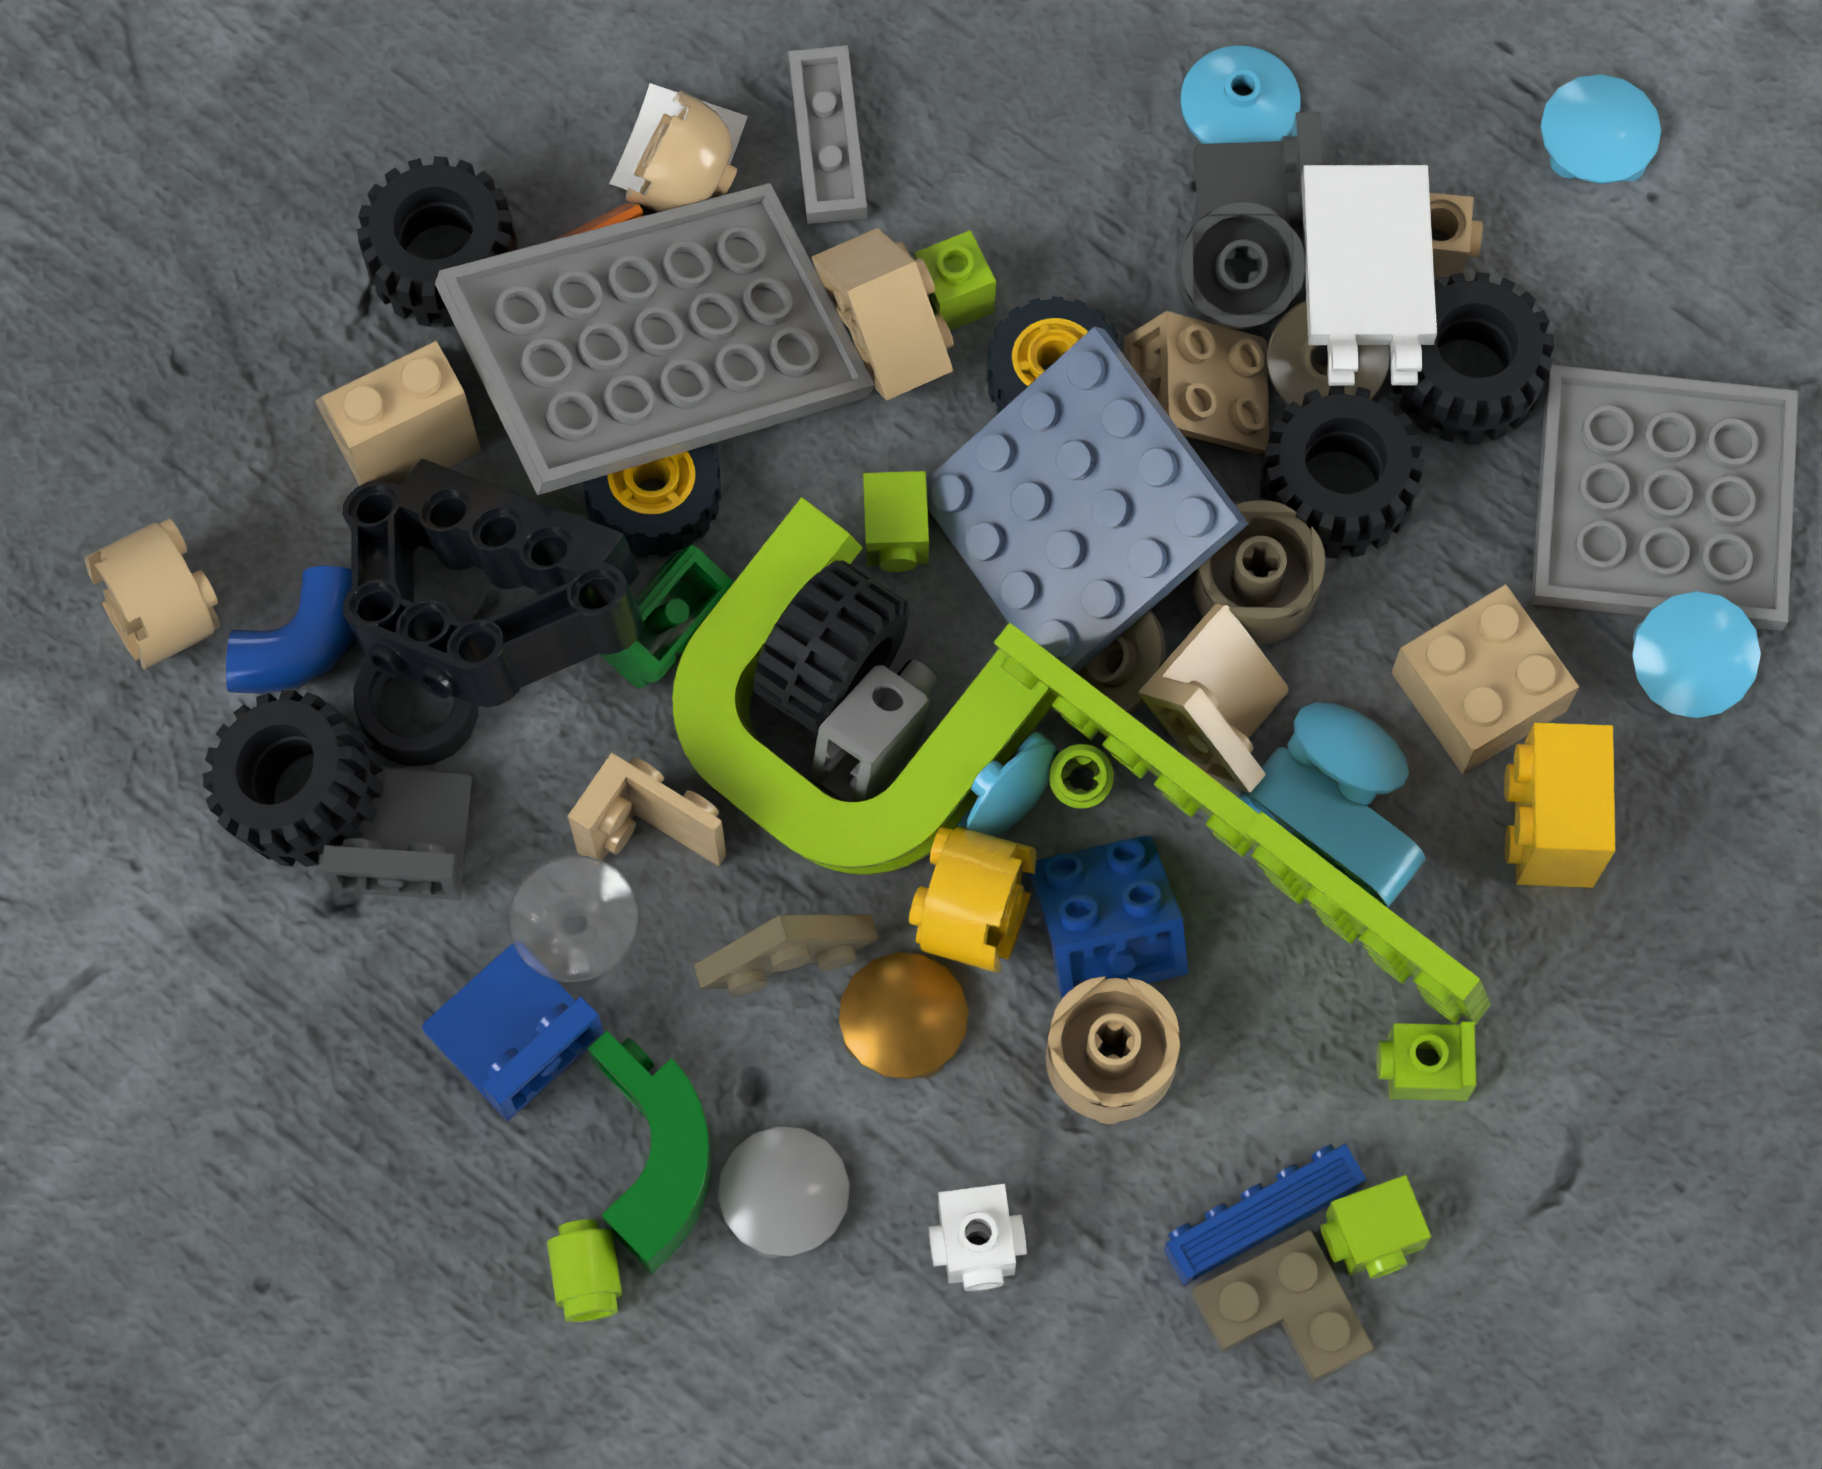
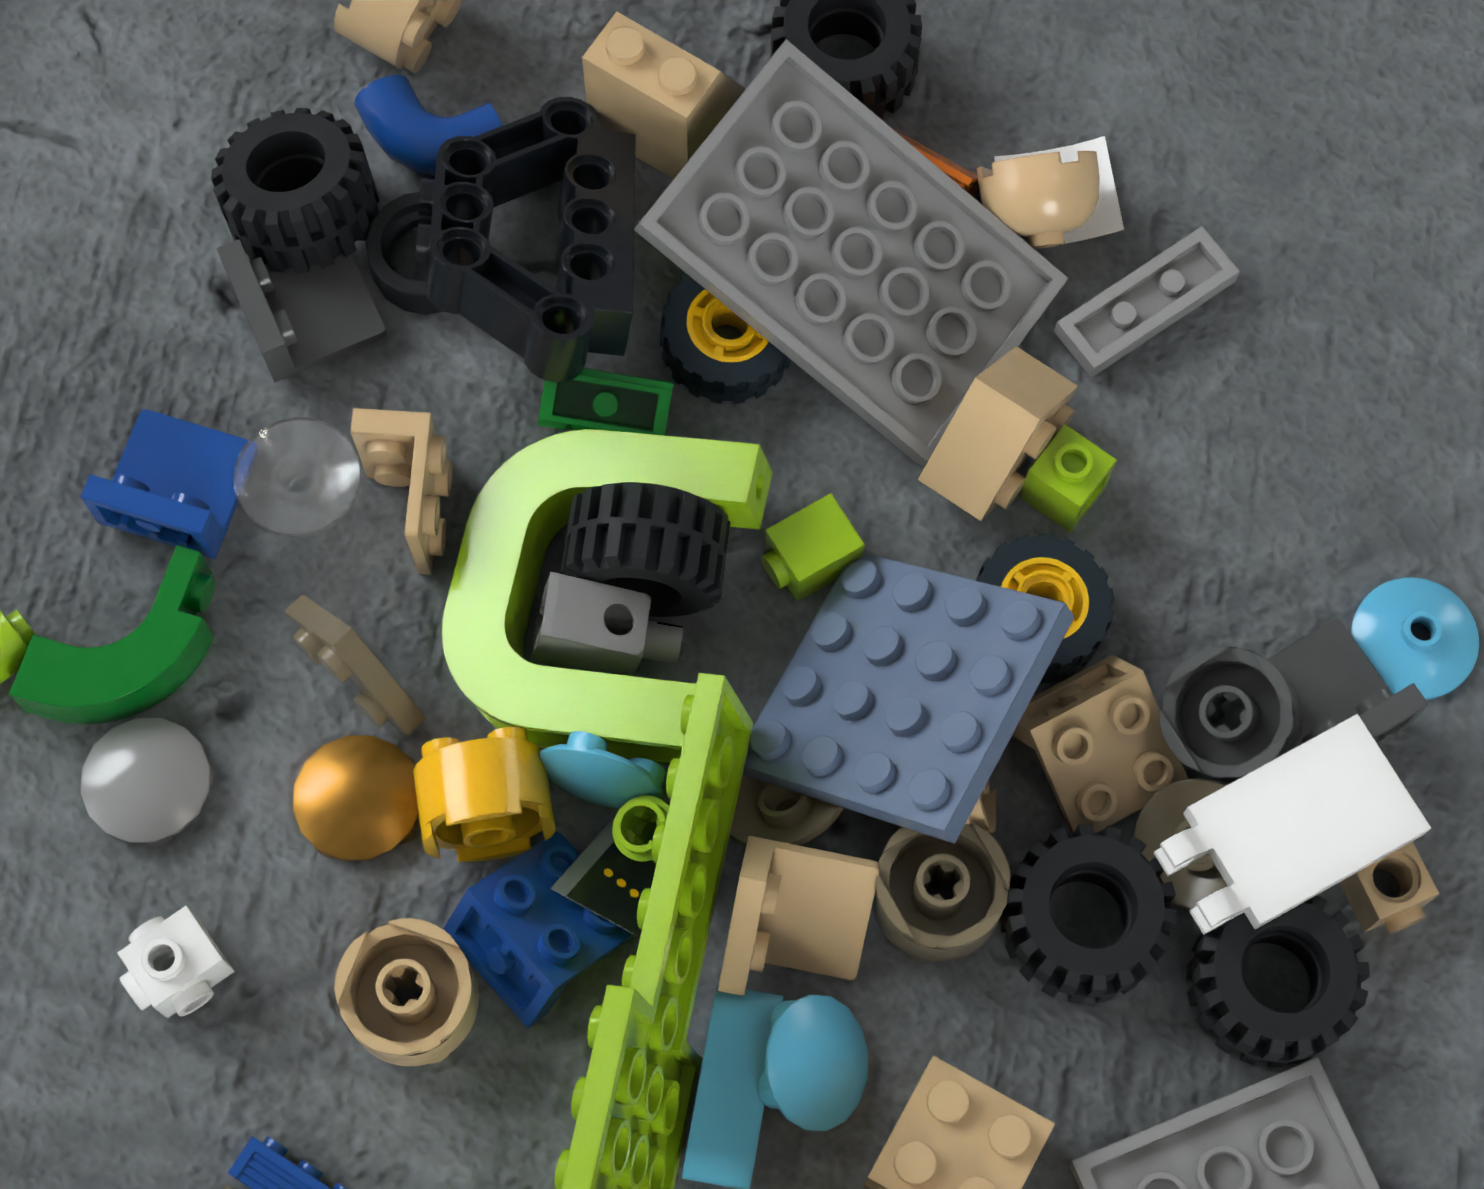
camera: 60 degrees right, 0 degrees up
(1103, 834) = (607, 881): none -> black sticker

